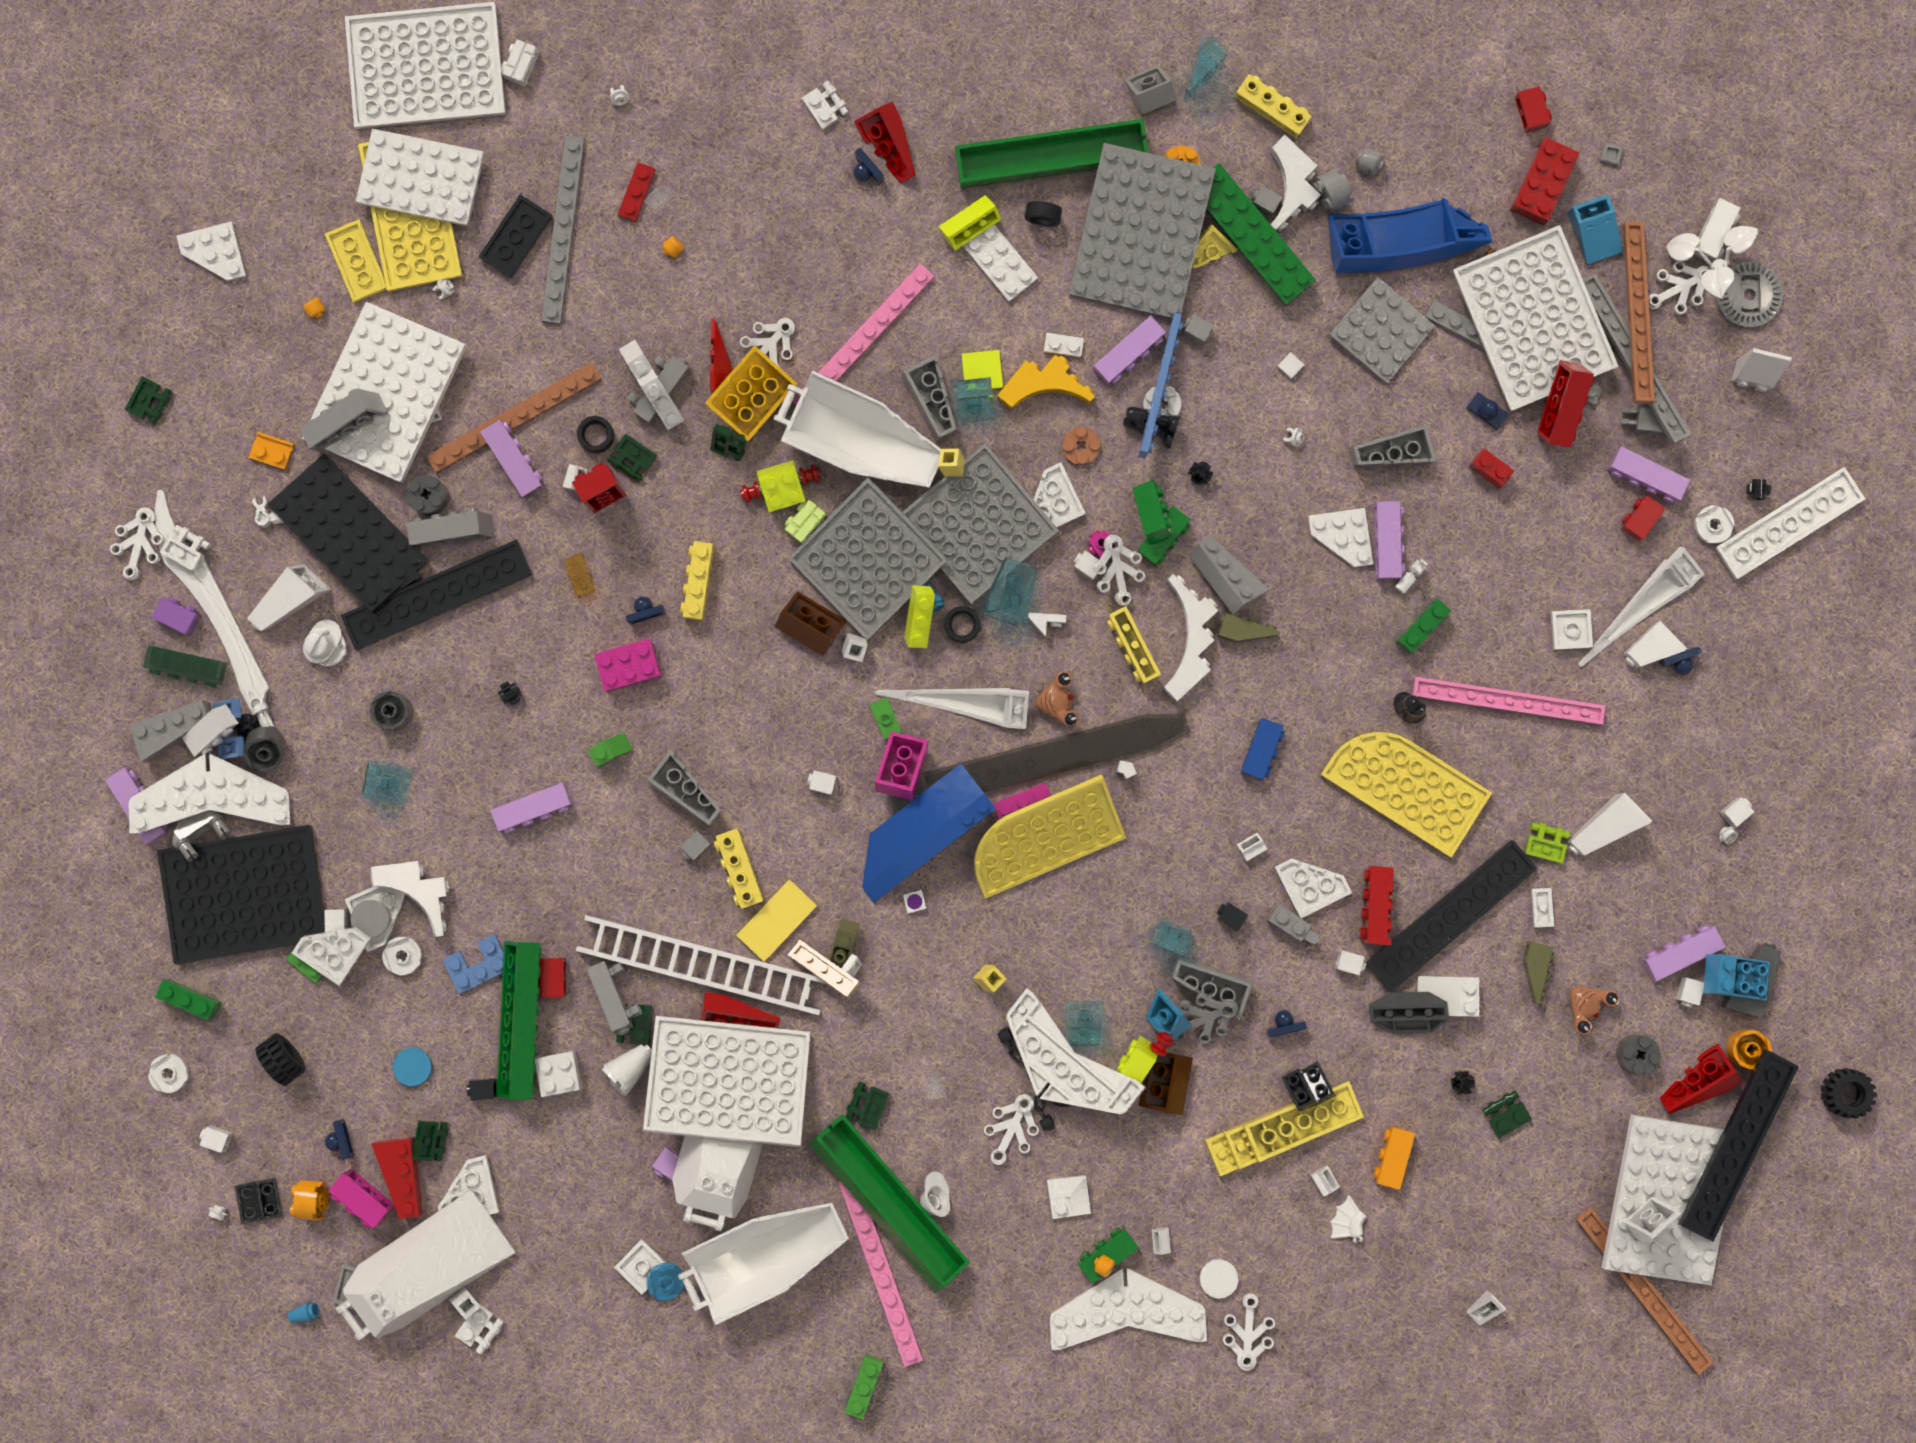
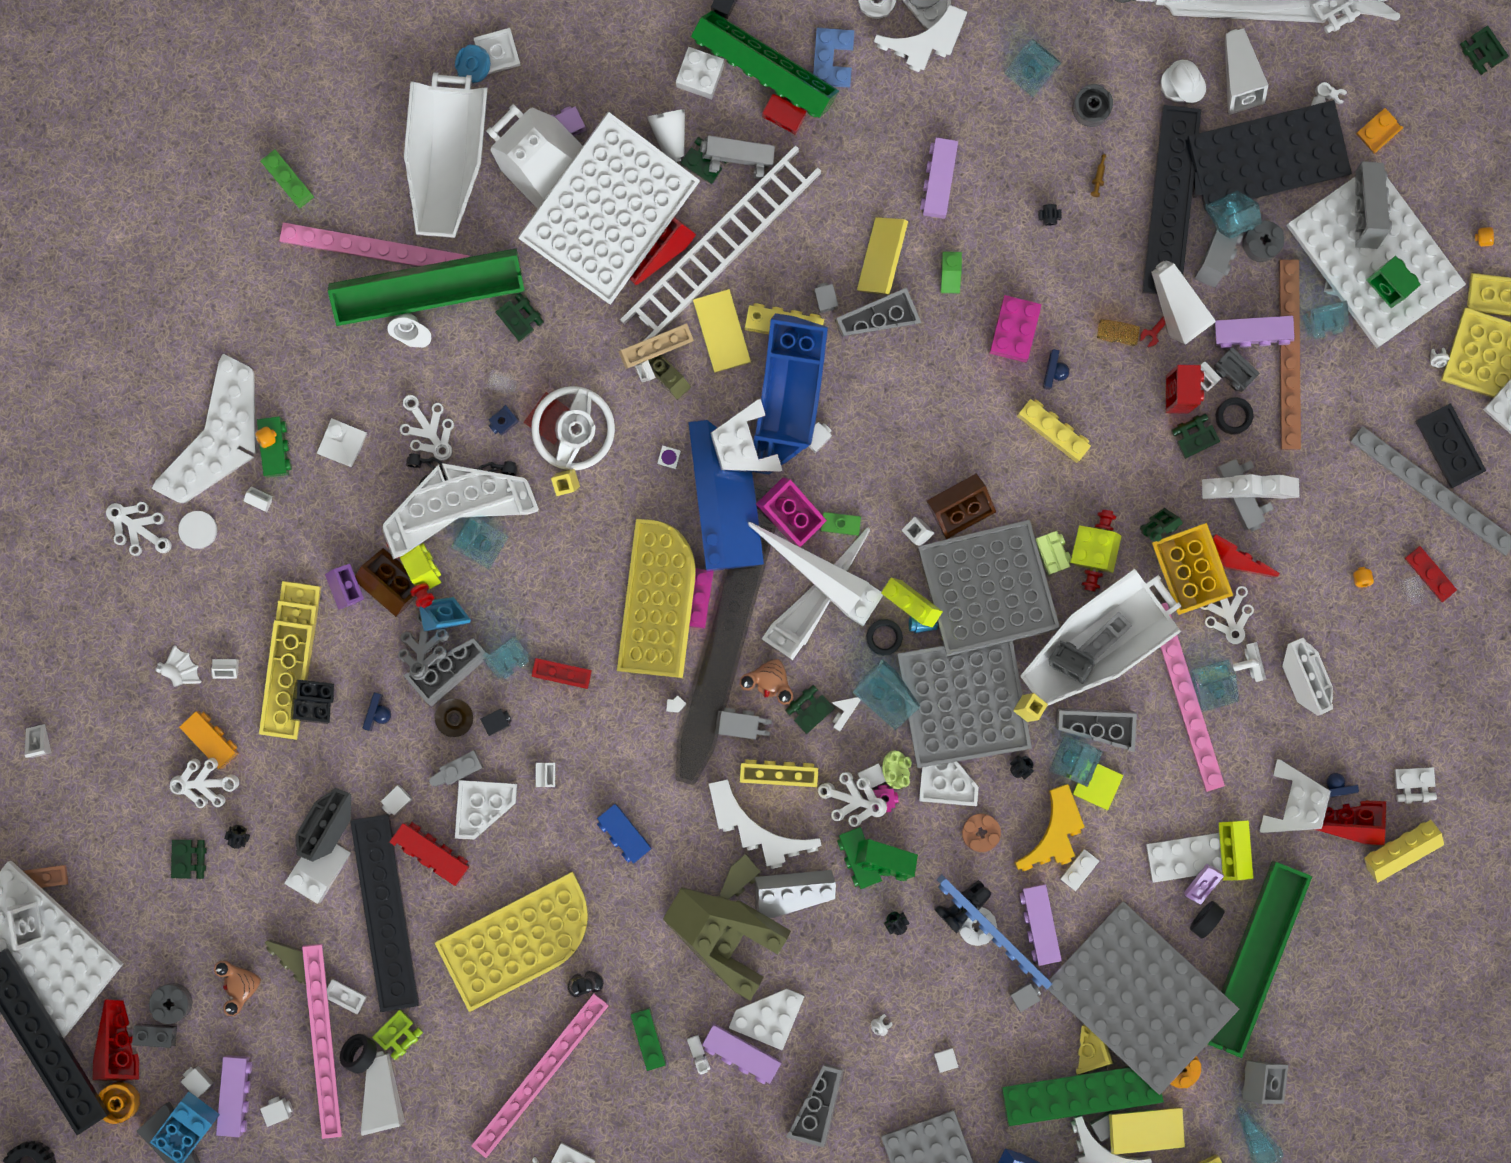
camera: 120 degrees right, 0 degrees up
(400, 361) = (1393, 281): none -> green brick
(418, 532) = (1234, 214): none -> clear light blue slope
(452, 669) = (1098, 181): none -> pearl gold piece
(466, 402) = (1326, 319): none -> clear light blue slope
(527, 532) = (1180, 305): none -> white slope
(554, 455) = (1236, 370): none -> dark grey hinge
(560, 544) = (1153, 333): none -> red bar
(630, 817) = (882, 255): none -> light yellow tile
(786, 244) = (1308, 677): none -> white wedge
(797, 828) = (790, 387): none -> blue slope
(801, 295) = (1253, 662): none -> white plate
(838, 319) = (1215, 685): none -> clear light blue slope
(863, 438) = (1106, 636): none -> light grey slope
(871, 848) = (735, 444): none -> white wing
(887, 82) = (1404, 850): none -> light yellow brick
(890, 450) = (1072, 661): none -> dark grey hinge
(896, 186) = (1305, 803): none -> white wing
(923, 1000) = (569, 442): none -> white piece
(941, 680) = (848, 592): none -> white plate
(941, 1025) = (548, 419): none -> clear red plate
(960, 1062) = (510, 421): none -> dark blue brick
(1005, 443) = (1021, 767): none -> black gear
(1014, 233) = (1203, 884): none -> lavender plate
(1064, 647) = (814, 713): none -> dark green plate
(1070, 548) = (896, 769): none -> yellowish green dish
(1110, 704) = (740, 725): none -> light grey hinge
(1156, 884) = (561, 673): none -> red plate
(1193, 1118) = (344, 586): none -> medium lavender brick
(1250, 164) = (1146, 1130): none -> light yellow tile
(1260, 955) = (444, 714): none -> dark brown dish
(1298, 622) = (714, 929): none -> olive wedge
(1437, 1139) = (202, 784): none -> white plant
(1584, 876) = (364, 1060): none -> black tyre
(1591, 904) = (322, 1041): none -> bright pink plate
(1673, 908) = (276, 1111): none -> white brick
(1673, 1052) = (154, 1035): none -> dark grey hinge

